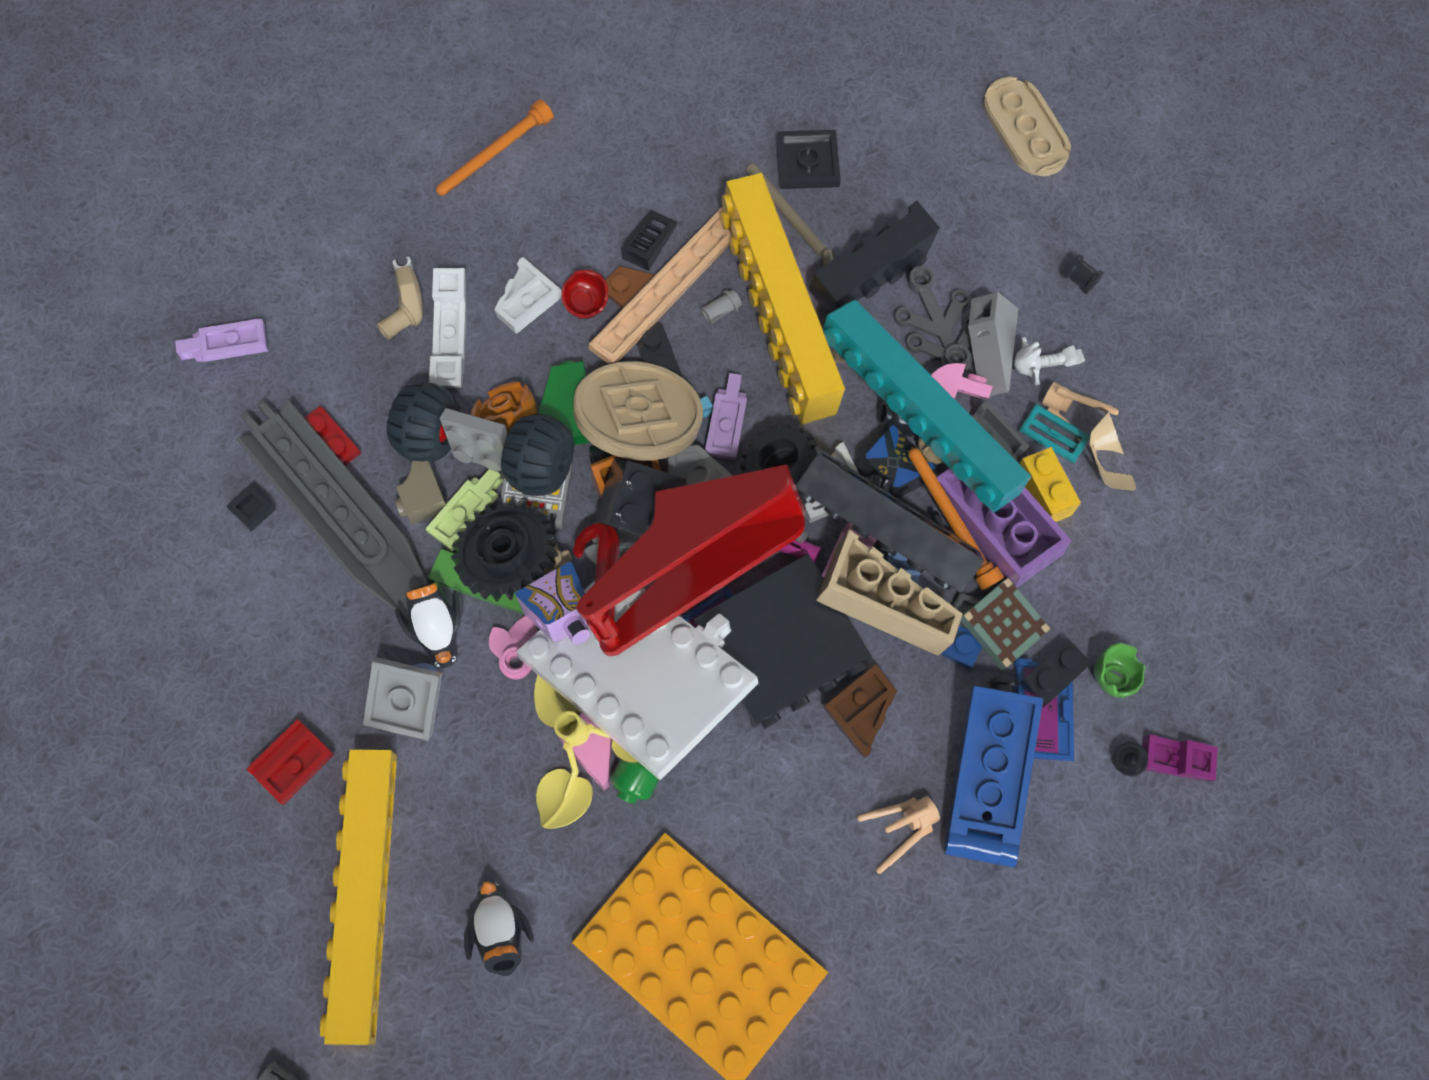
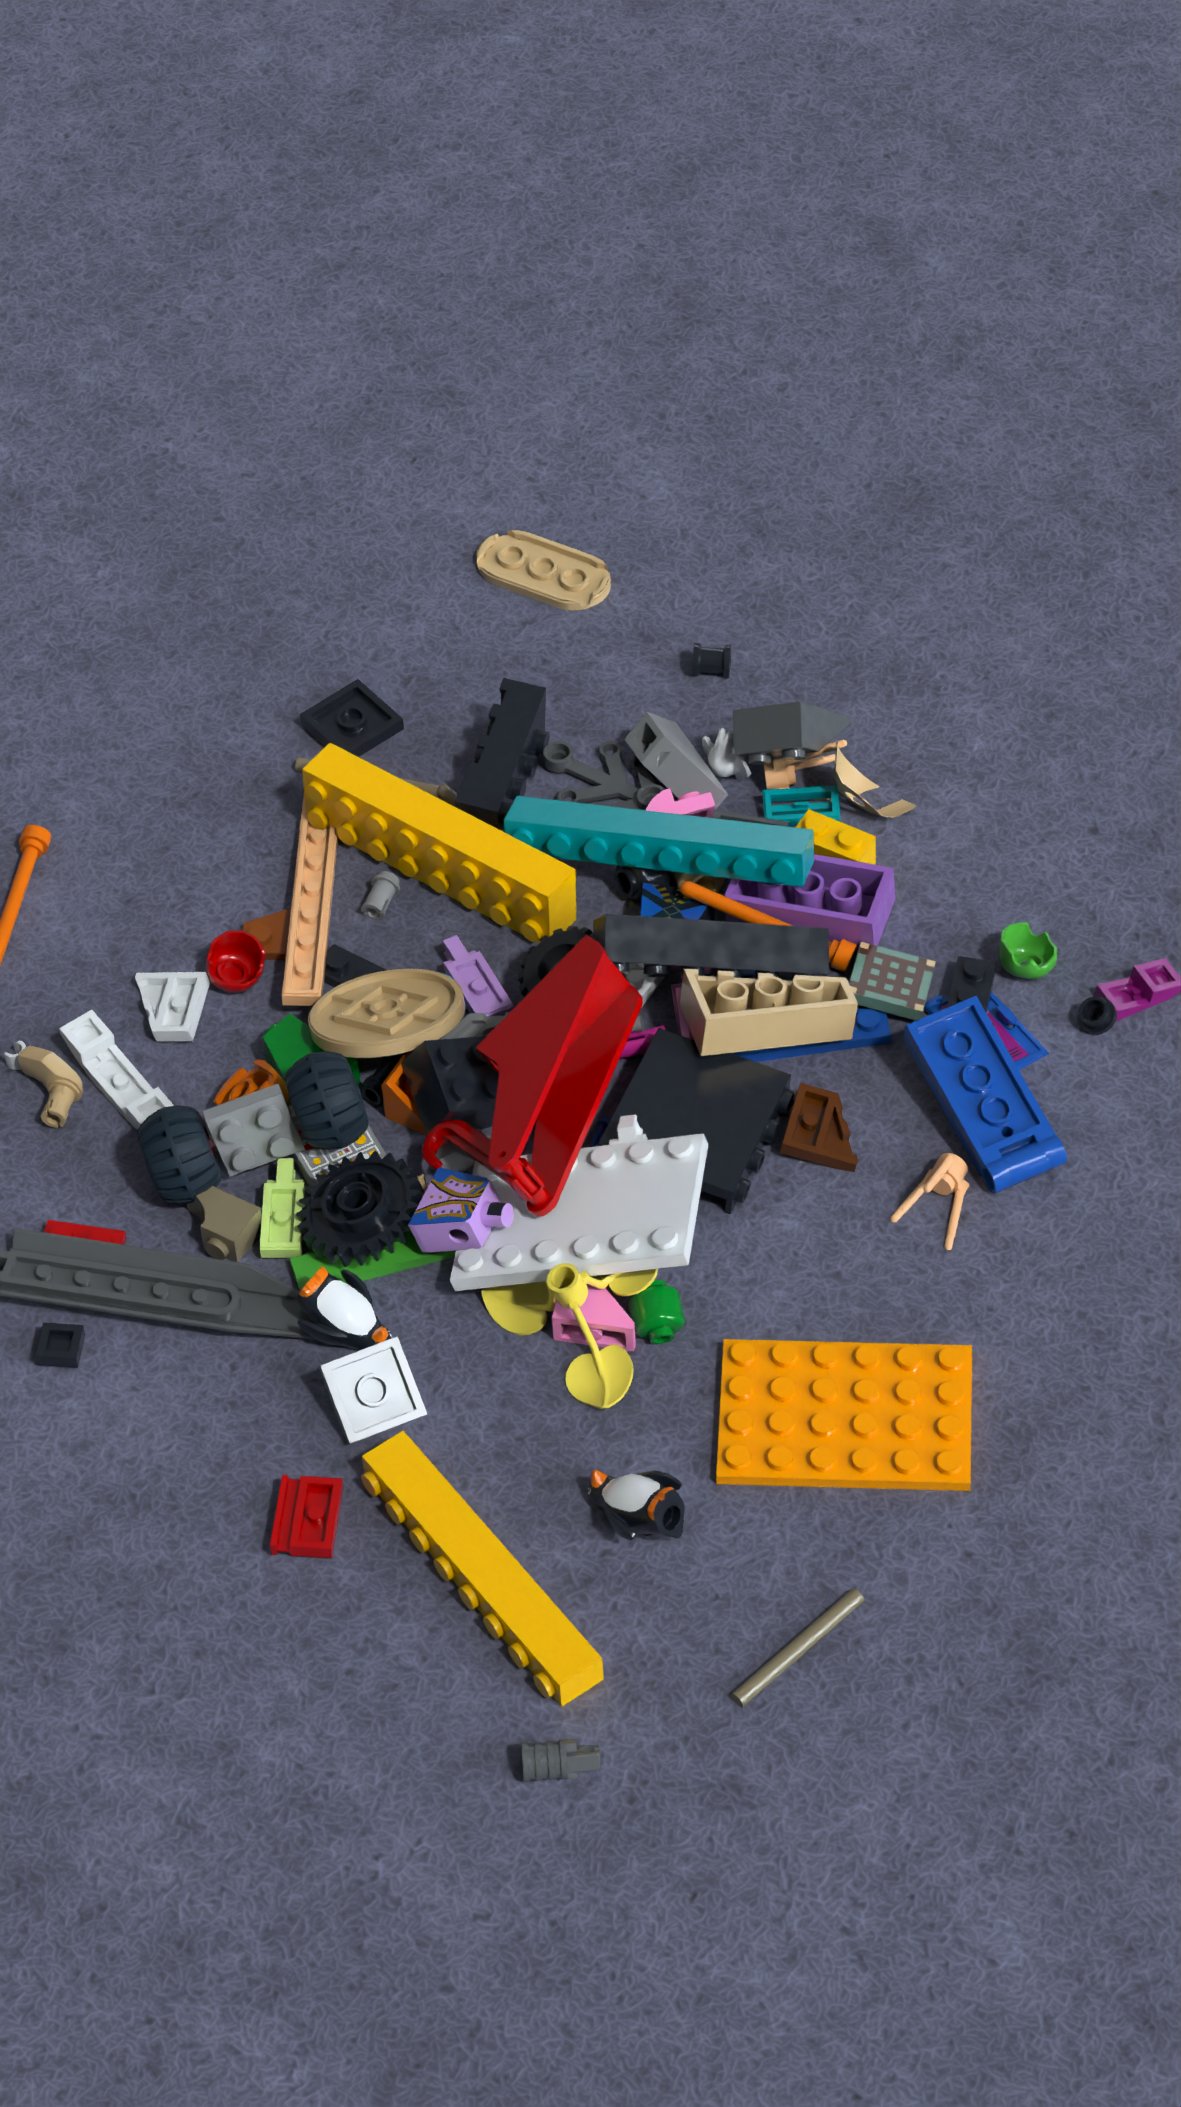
camera: 30 degrees left, 20 degrees down
(505, 644) = (437, 1291): bright pink plate -> none
(639, 257) = (255, 902): black slope -> none
(1080, 376) = (784, 731): none -> dark grey slope

